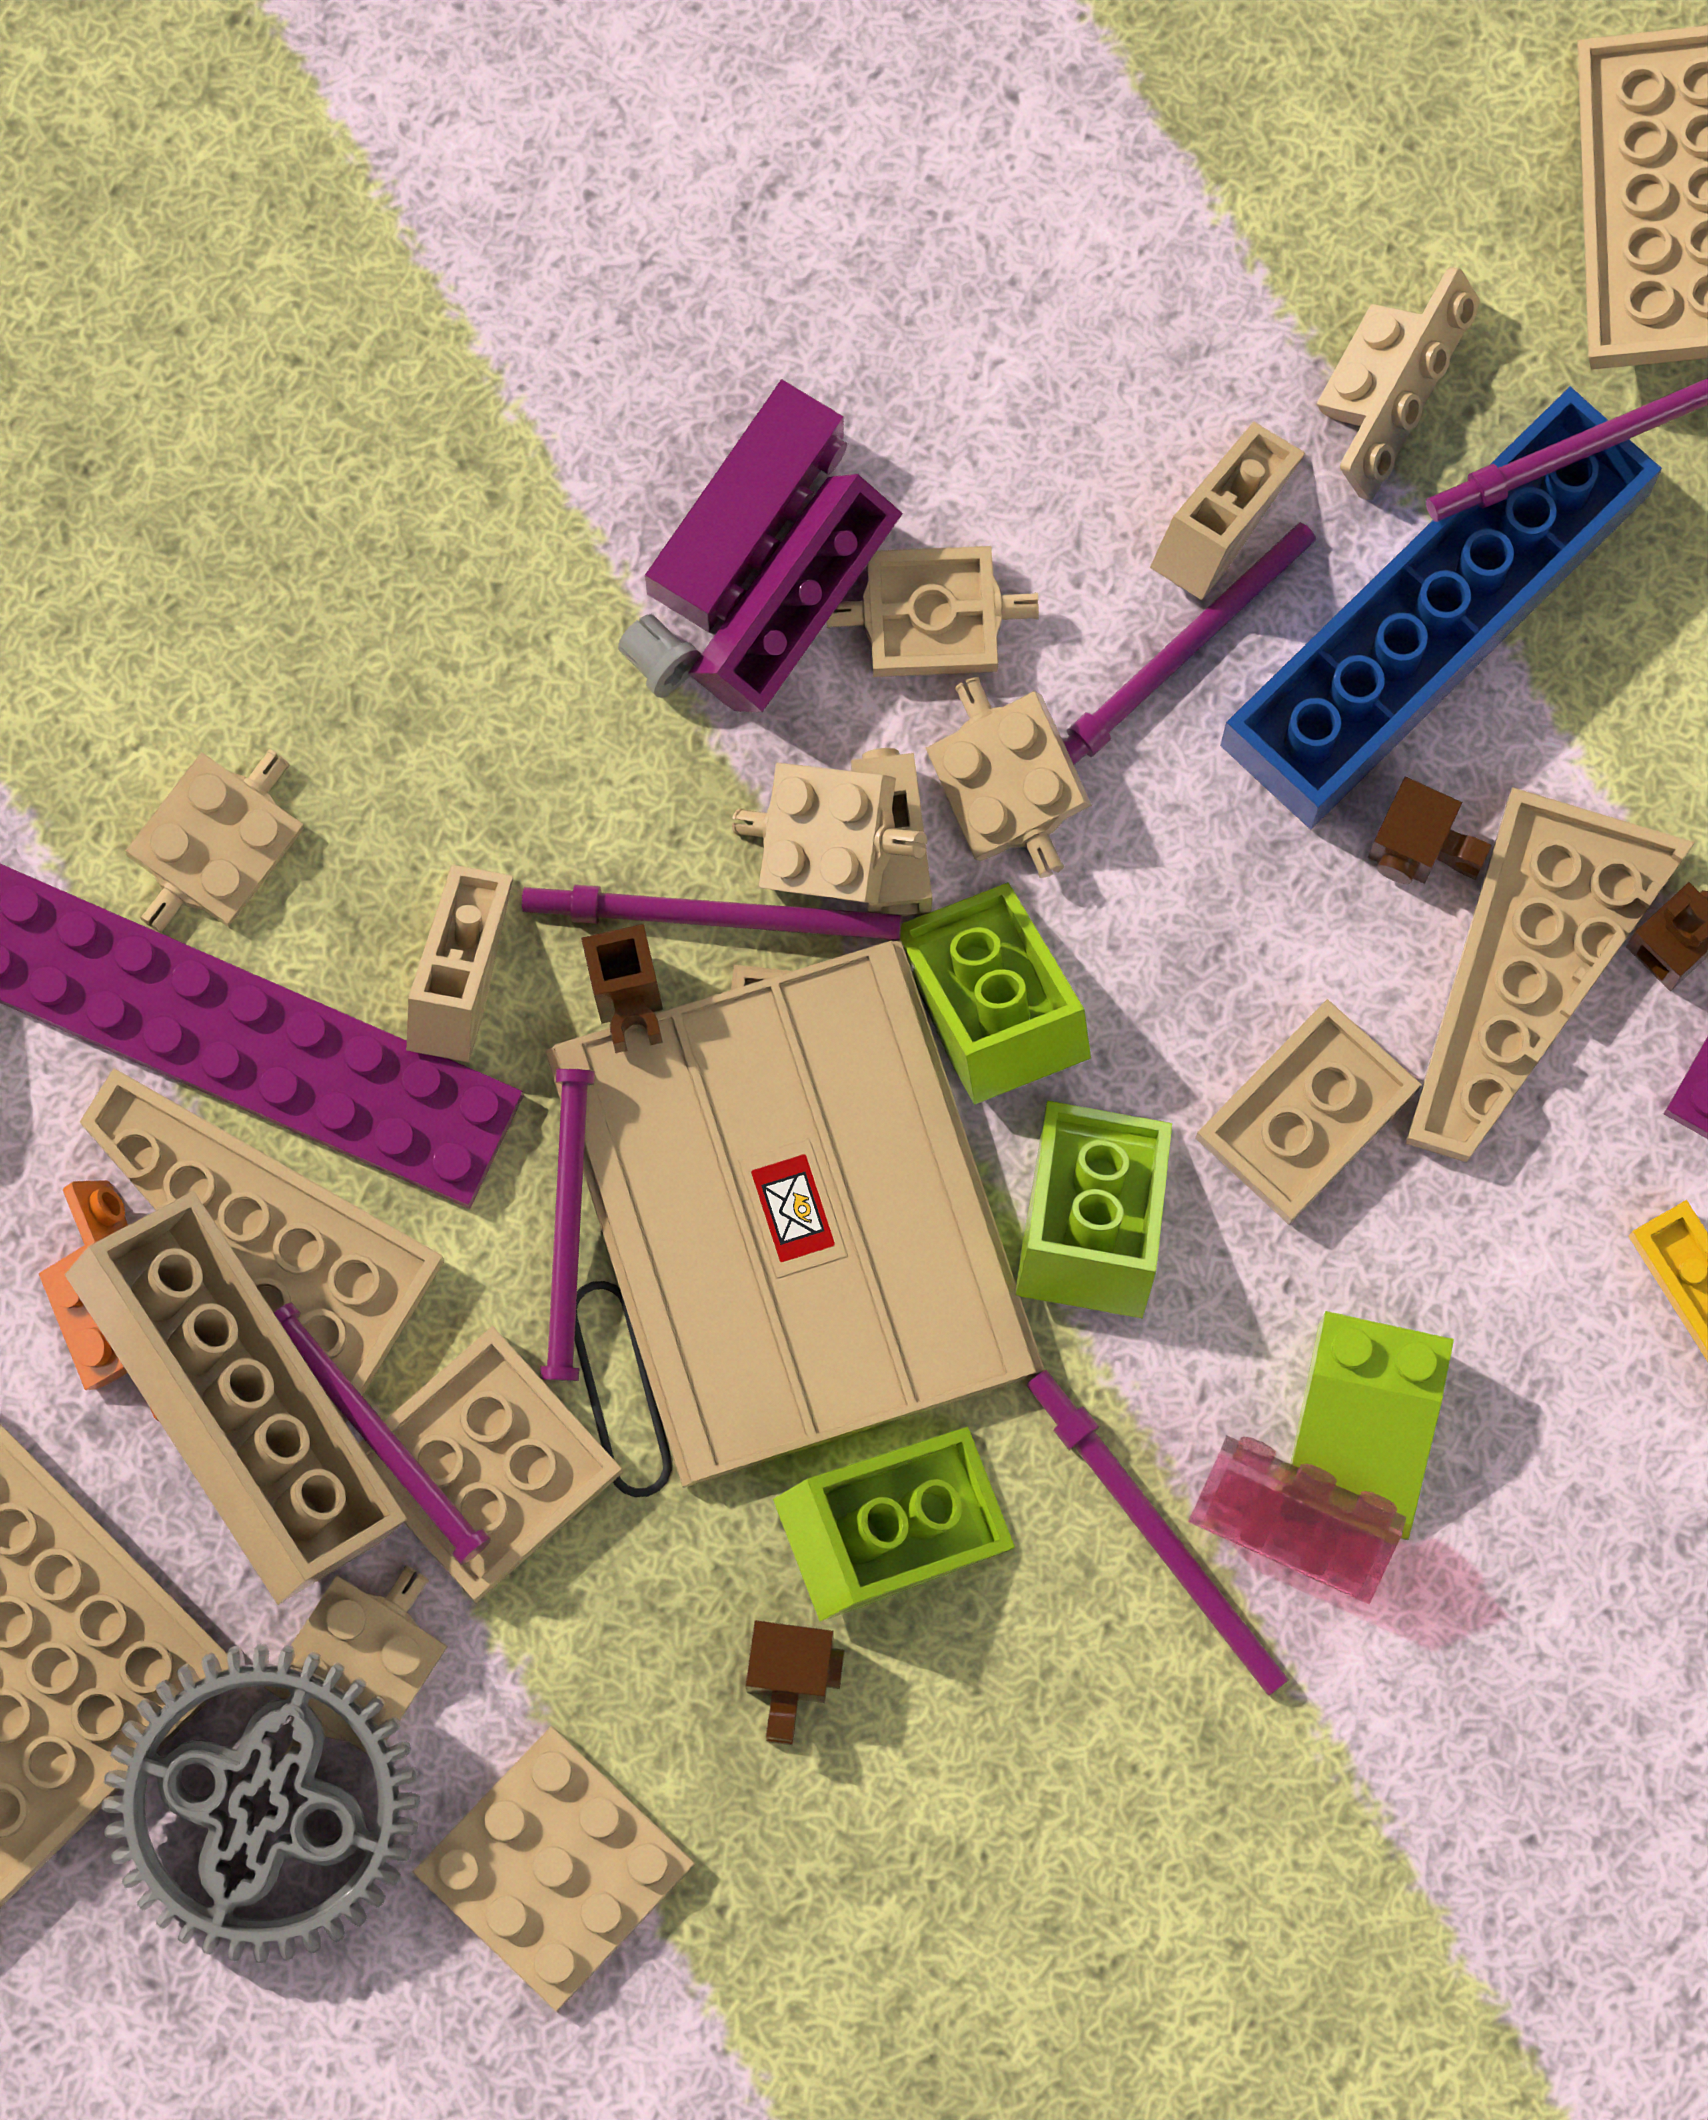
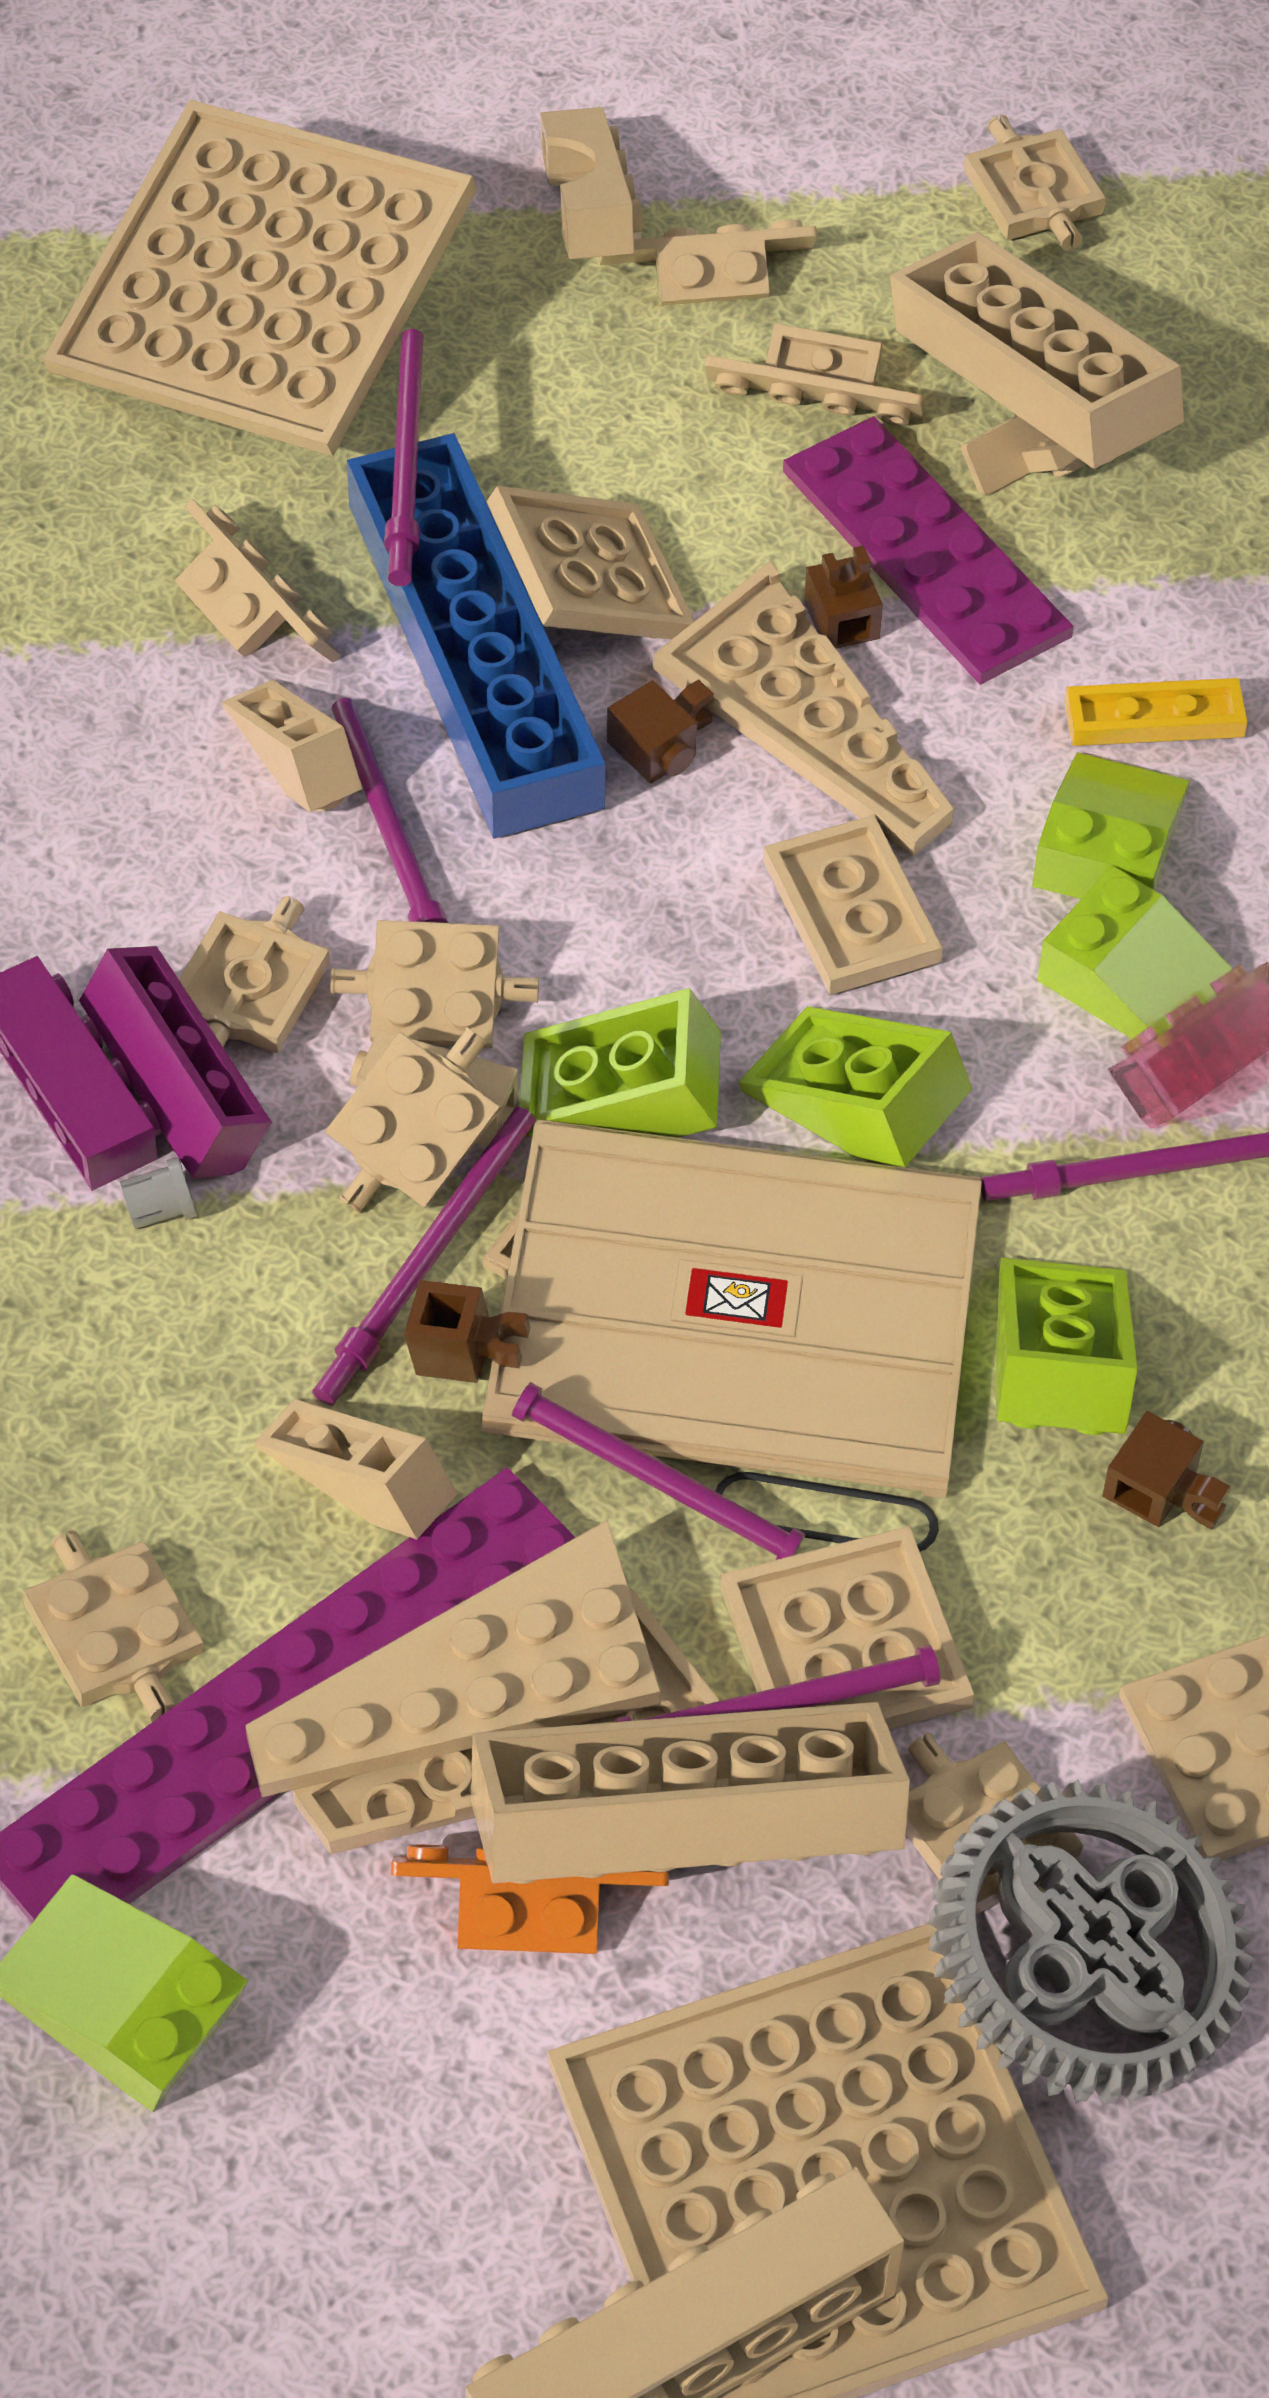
camera: 65 degrees left, 20 degrees down
(310, 1185) = (522, 1654): none -> tan wing
(1537, 1316) = (1107, 818): none -> lime slope
(1581, 675) = (590, 563): none -> tan plate

